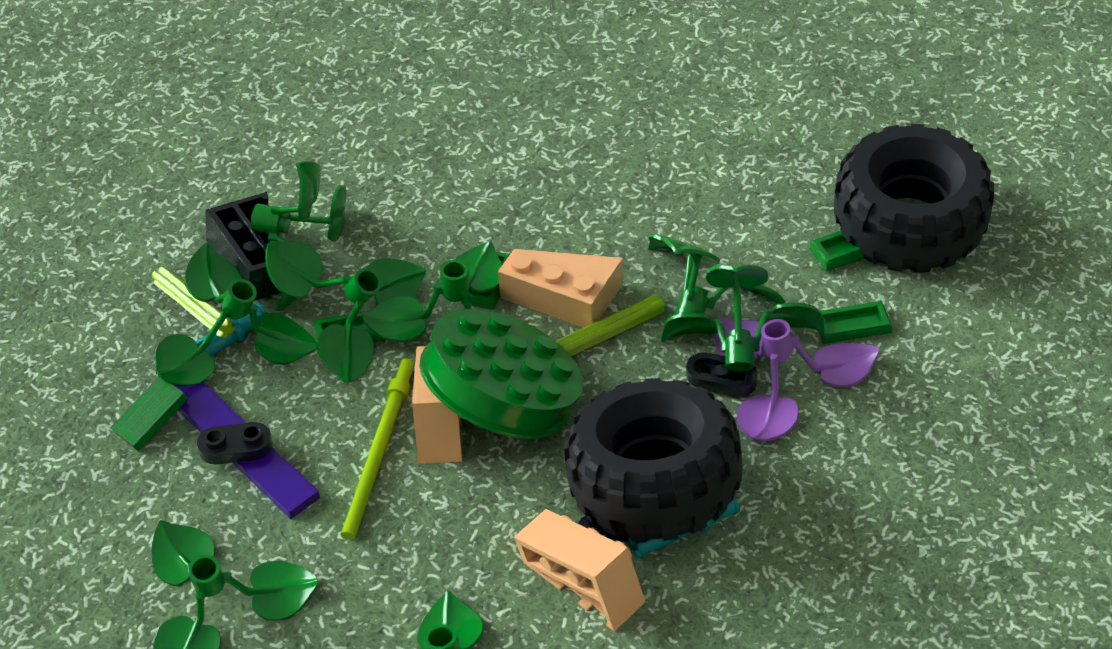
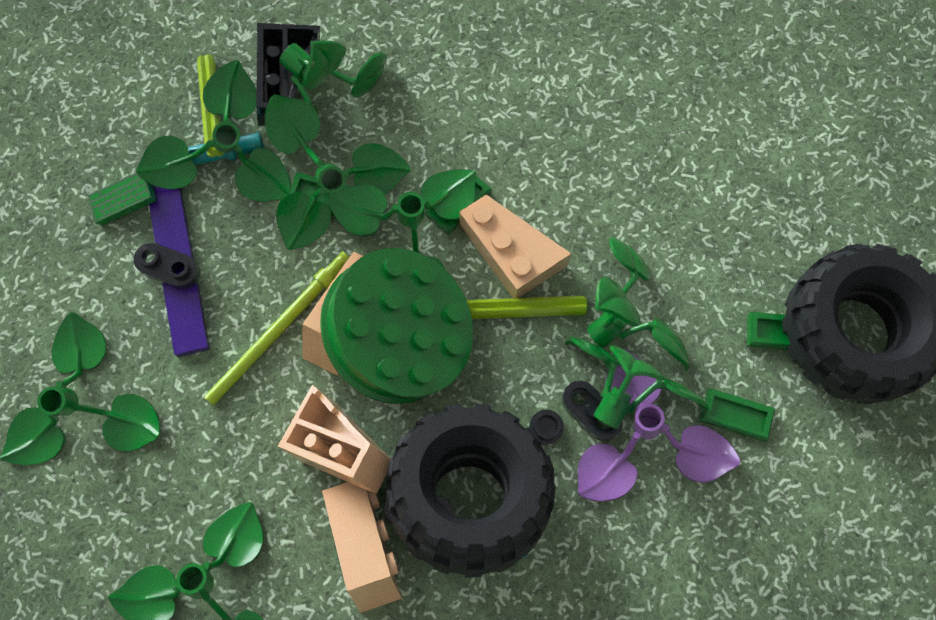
camera: 25 degrees right, 25 degrees up
(504, 490) = (334, 443): none -> light nougat wedge

